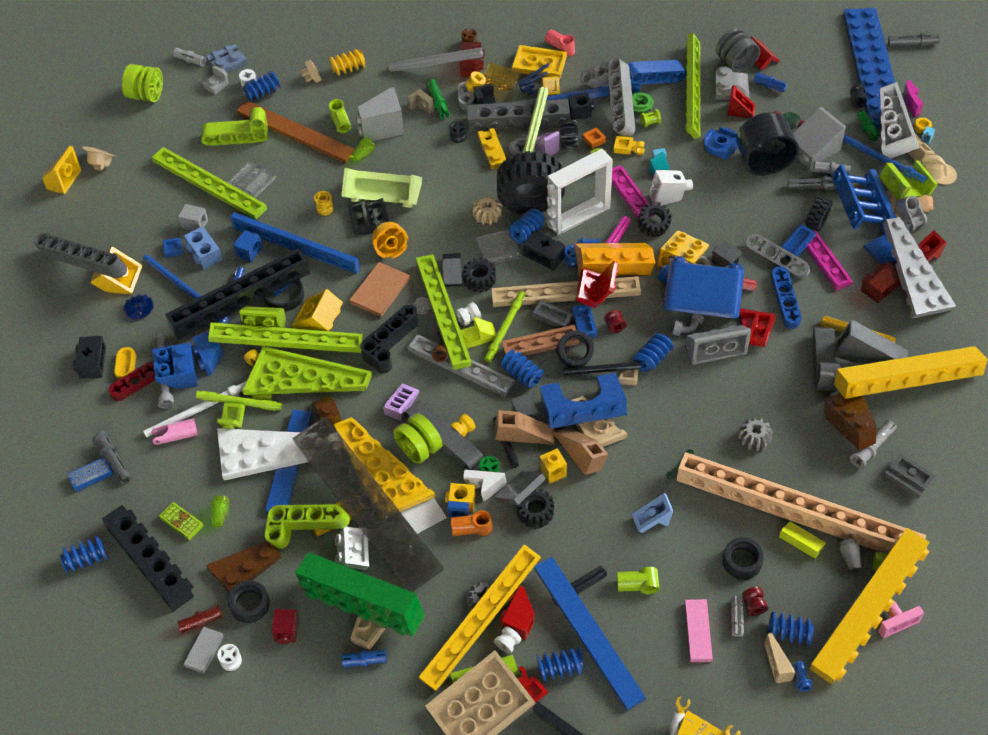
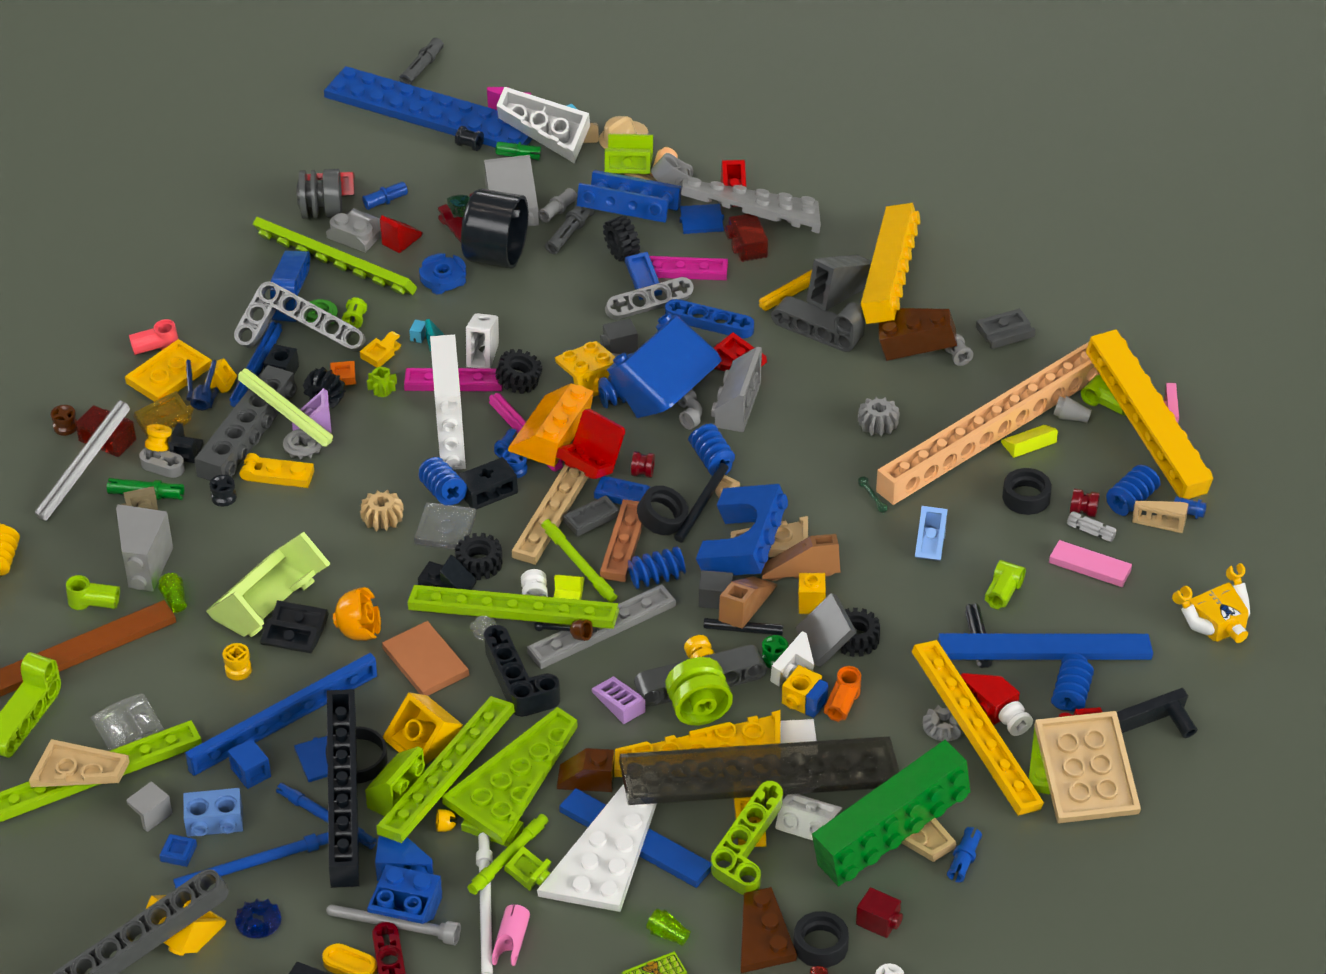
camera: 65 degrees left, 10 degrees down
(200, 171) = (77, 765): none -> tan wing
(524, 181) = (394, 440): black tyre -> none
(908, 171) = (583, 158): blue bar -> none

